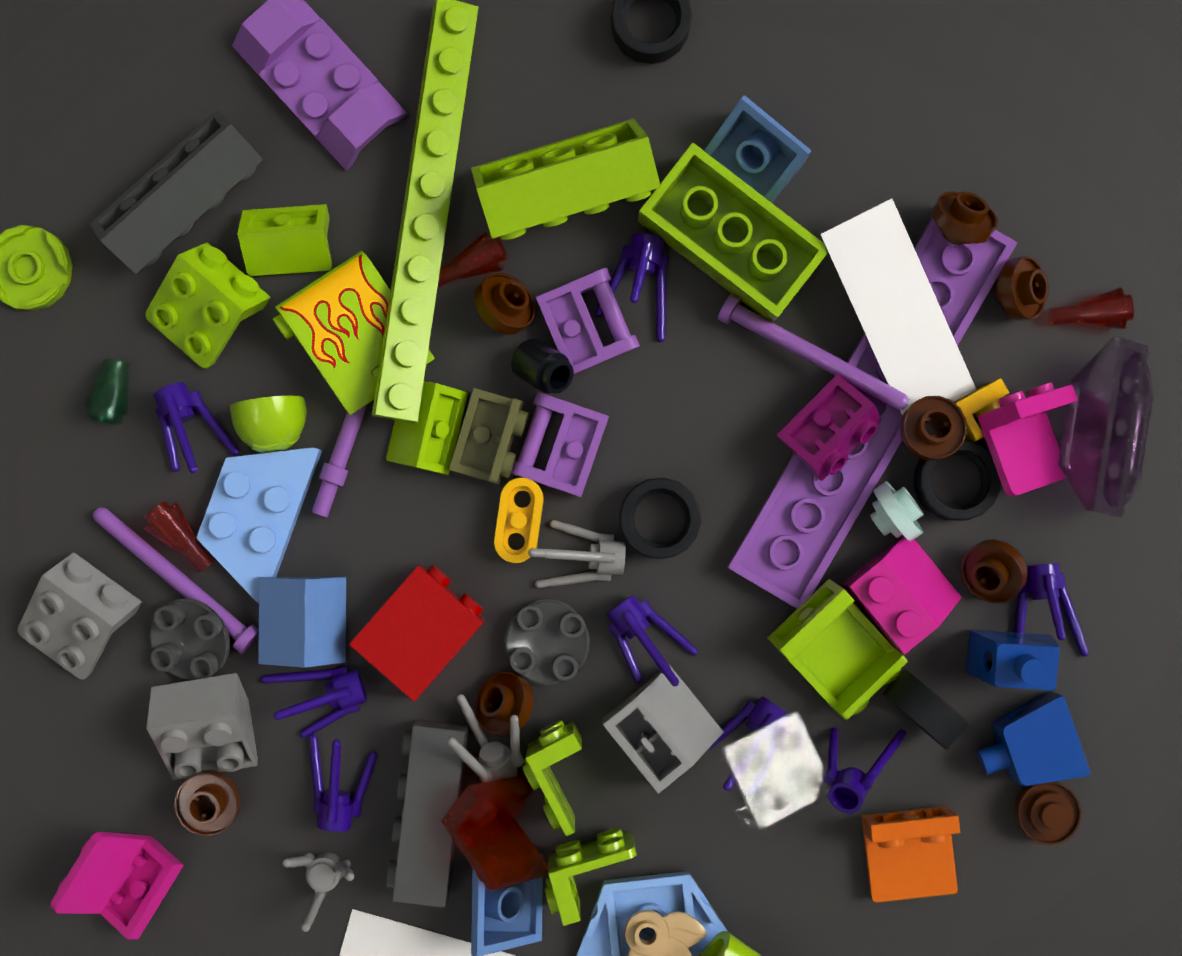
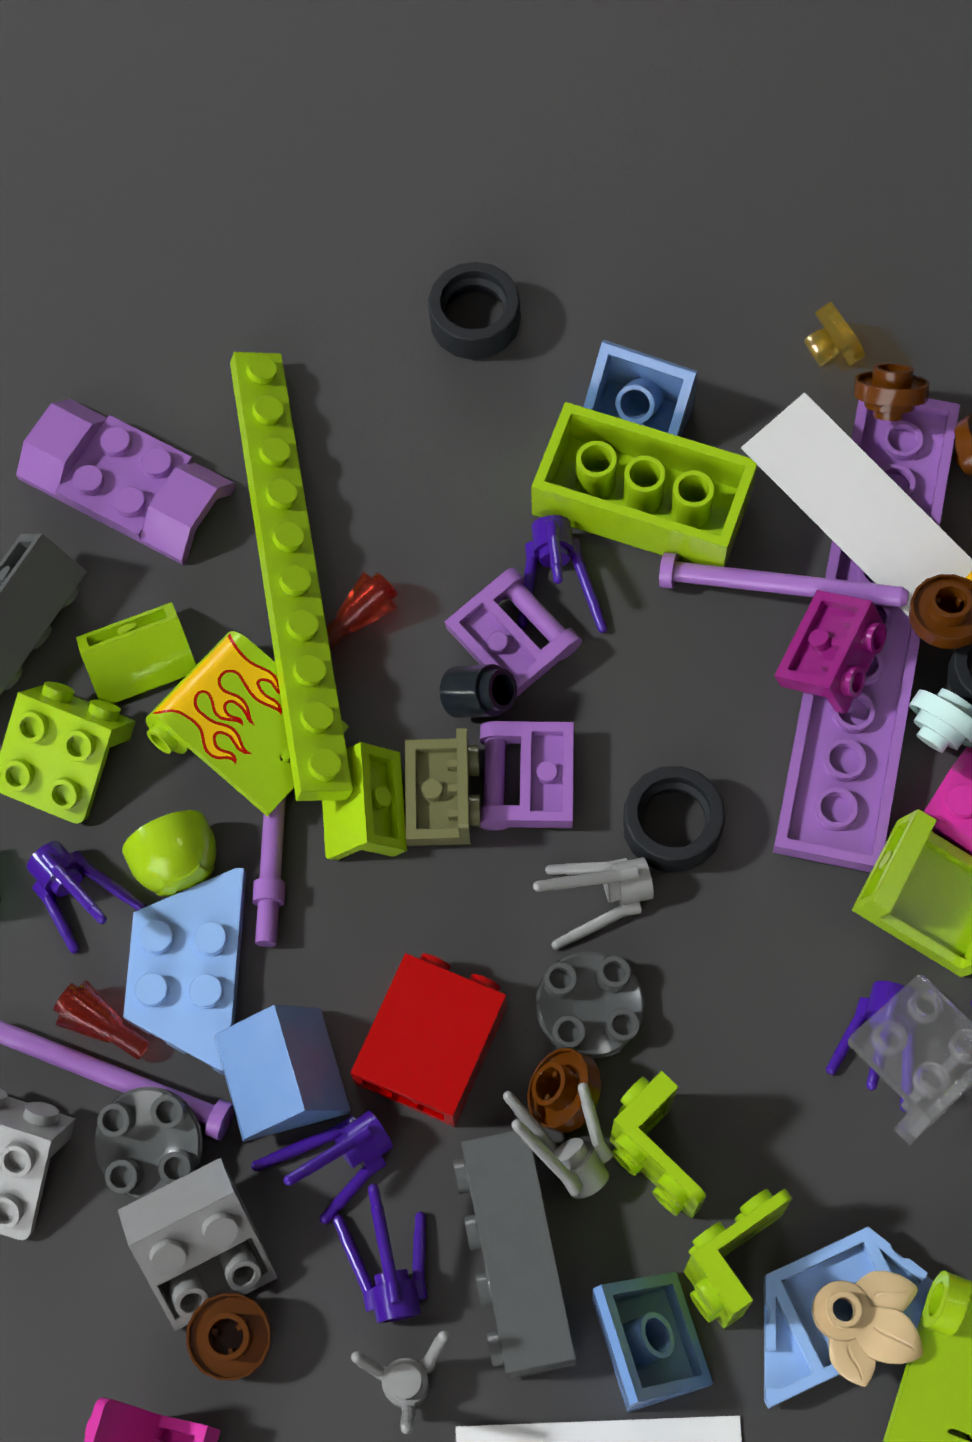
camera: 15 degrees left, 20 degrees down
(491, 837) = (585, 1229): clear red bracket -> none
(504, 303) = (411, 639): reddish brown plate -> none
(519, 520) = (508, 875): yellow plate -> none
(566, 179) = (436, 481): lime brick -> none
(631, 619) = (685, 942): dark purple plant -> none
(662, 729) = (765, 1058): light grey slope -> none
(939, 146) = (833, 338): none -> clear yellow tile

